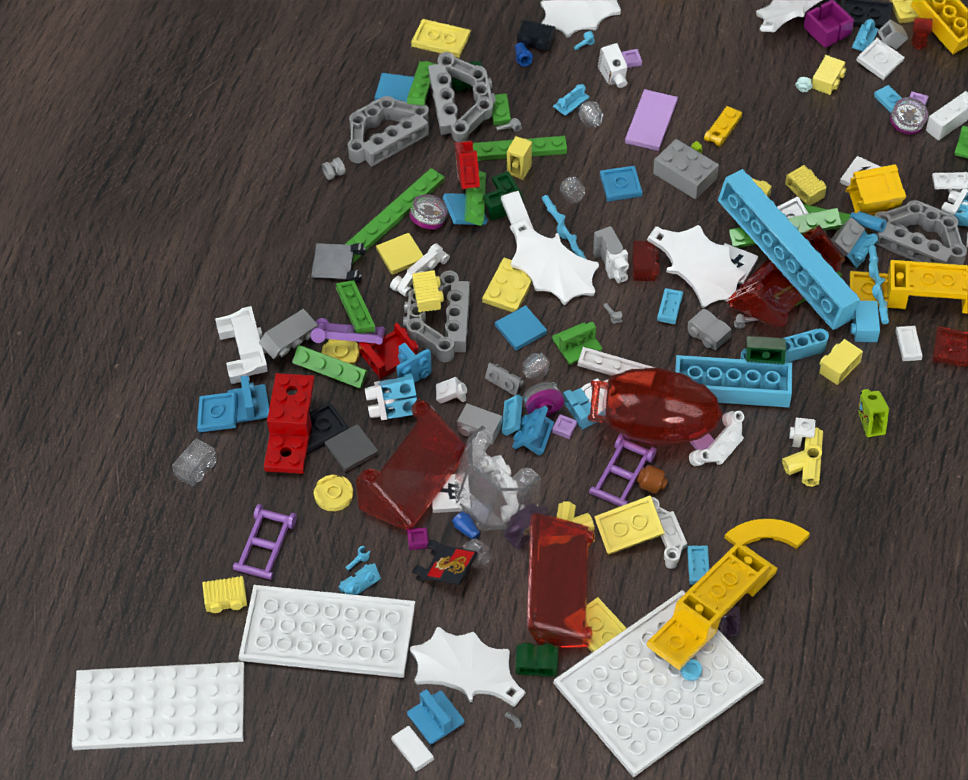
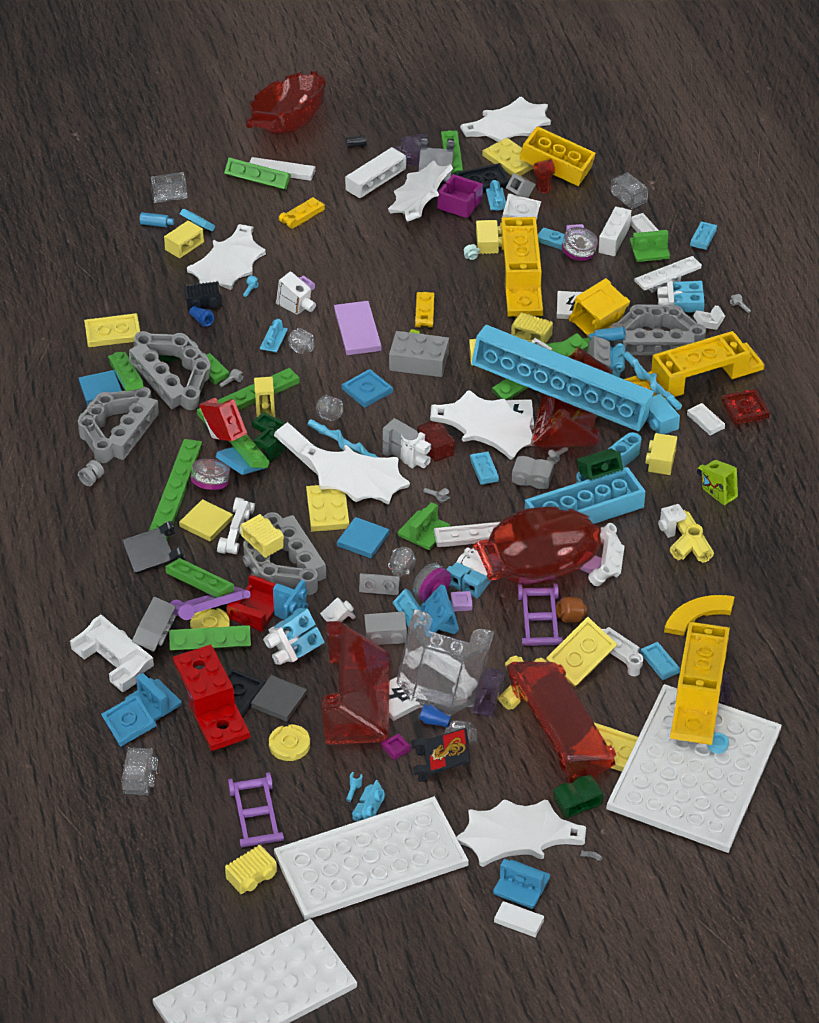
camera: 30 degrees left, 10 degrees down
(834, 116) = (521, 266): none -> yellow bracket

